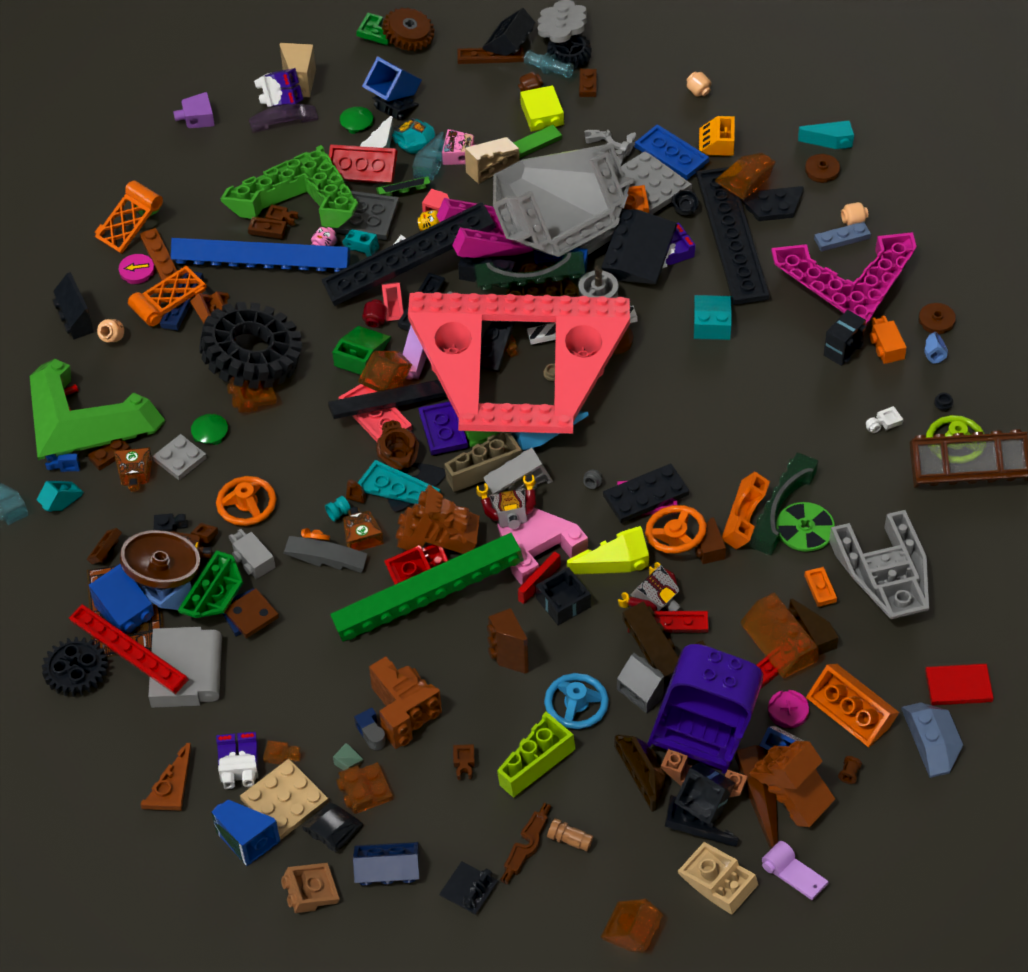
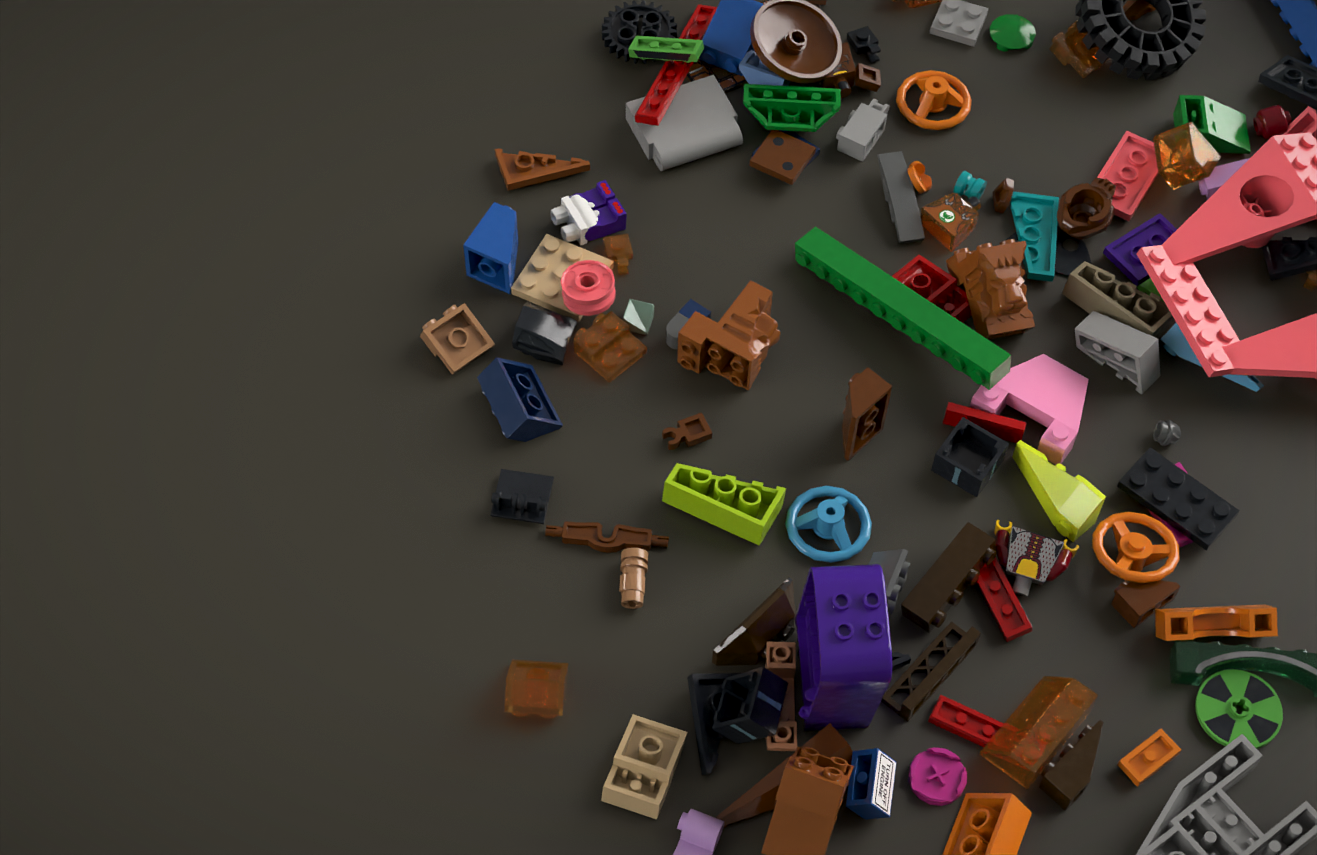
camera: 65 degrees right, 5 degrees up
(115, 649) = (666, 48): none -> bright green plate
(317, 789) = (588, 287): none -> coral wheel
(386, 399) = (1151, 177): black tile -> none
(509, 507) = (1068, 354): torso -> none

